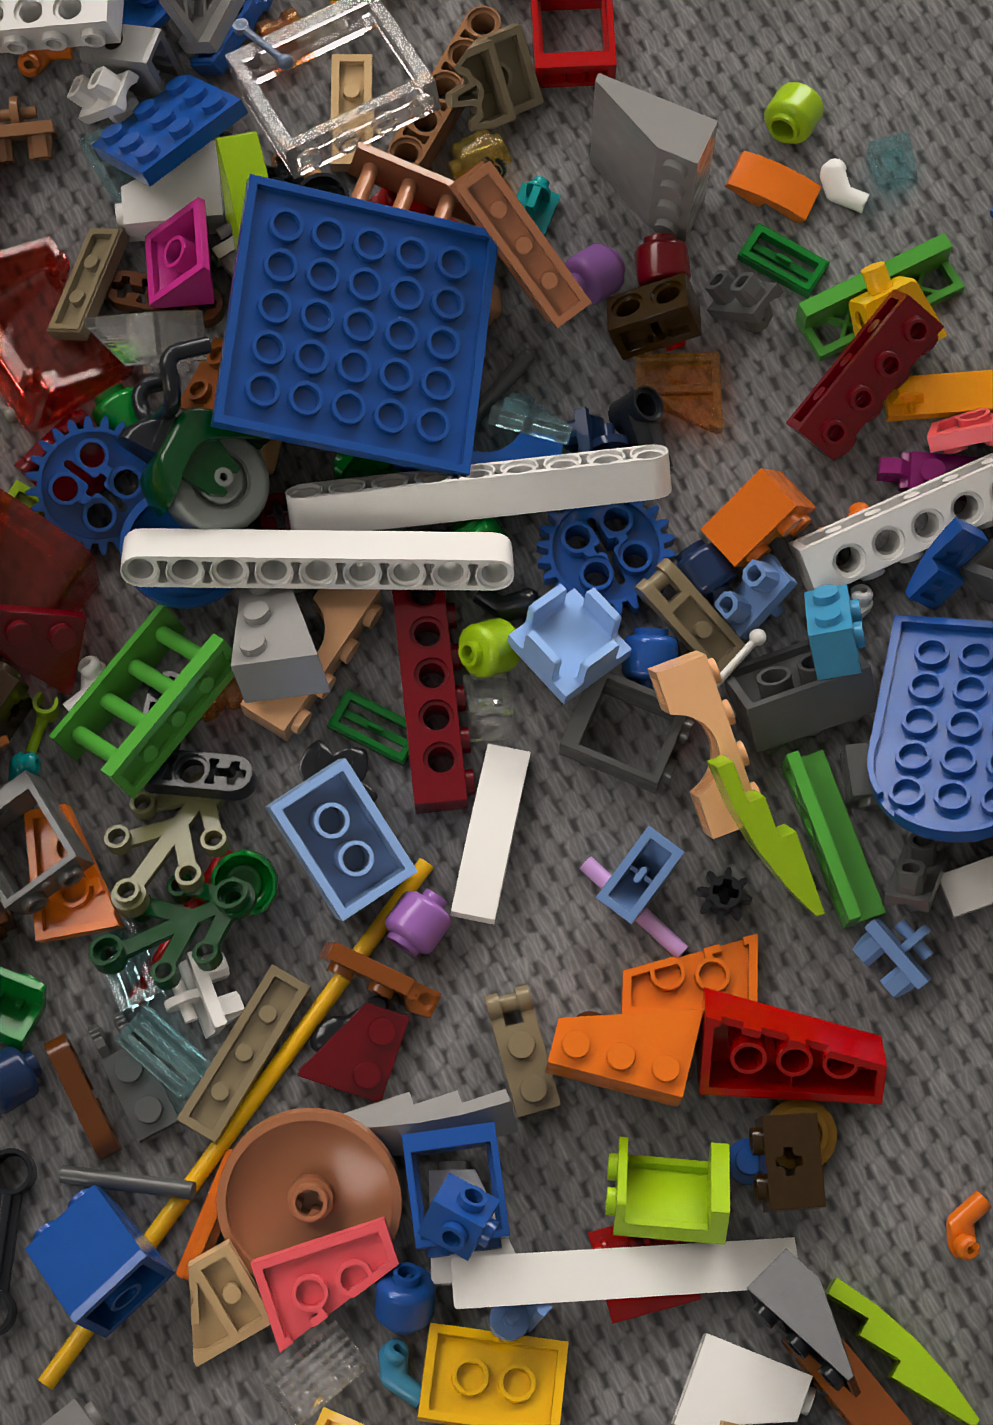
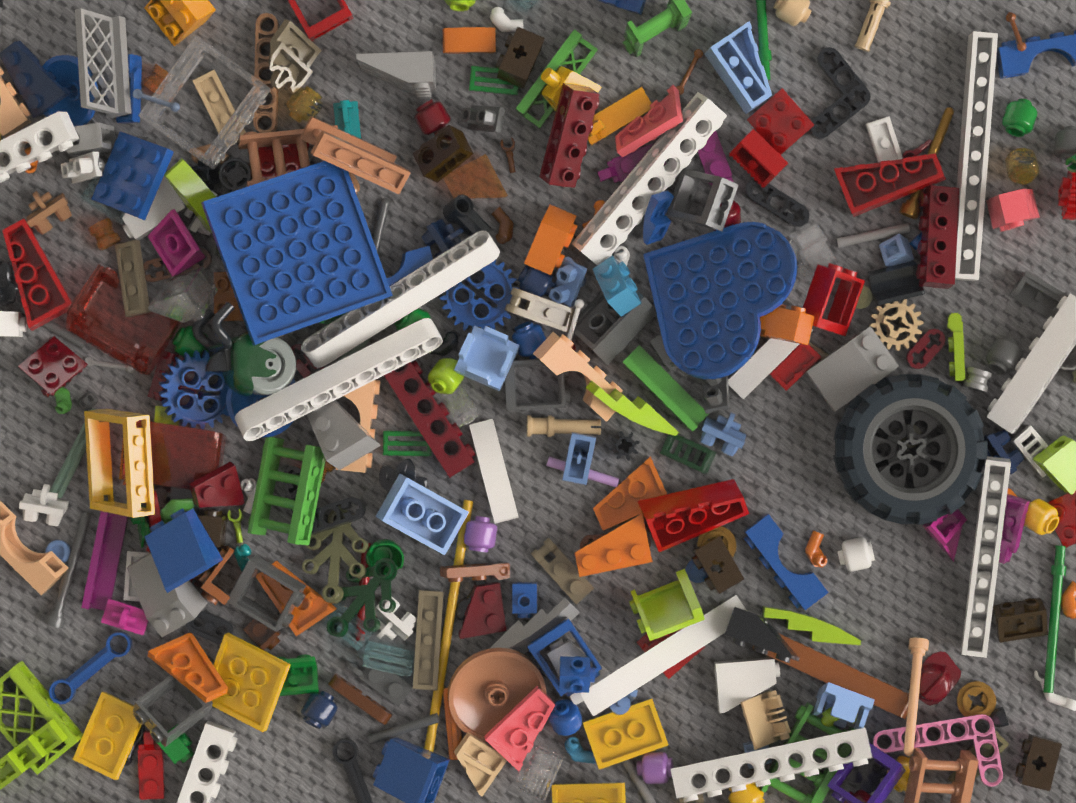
camera: 25 degrees left, 15 degrees up
(82, 203) = (104, 234): none -> clear orange wheel
(436, 1064) = (524, 599): none -> blue brick
(523, 416) = (405, 244): clear light blue wing -> none
(597, 271) = (398, 142): medium lavender head -> none
(617, 807) = (563, 426): none -> tan pin
(695, 475) = (506, 226): none -> reddish brown arm
(756, 369) = (509, 155): none -> reddish brown hand
(840, 238) = (528, 47): none -> dark brown brick
(846, 989) = (700, 449): none -> dark green slope
(916, 1279) = (804, 587): none -> blue arch

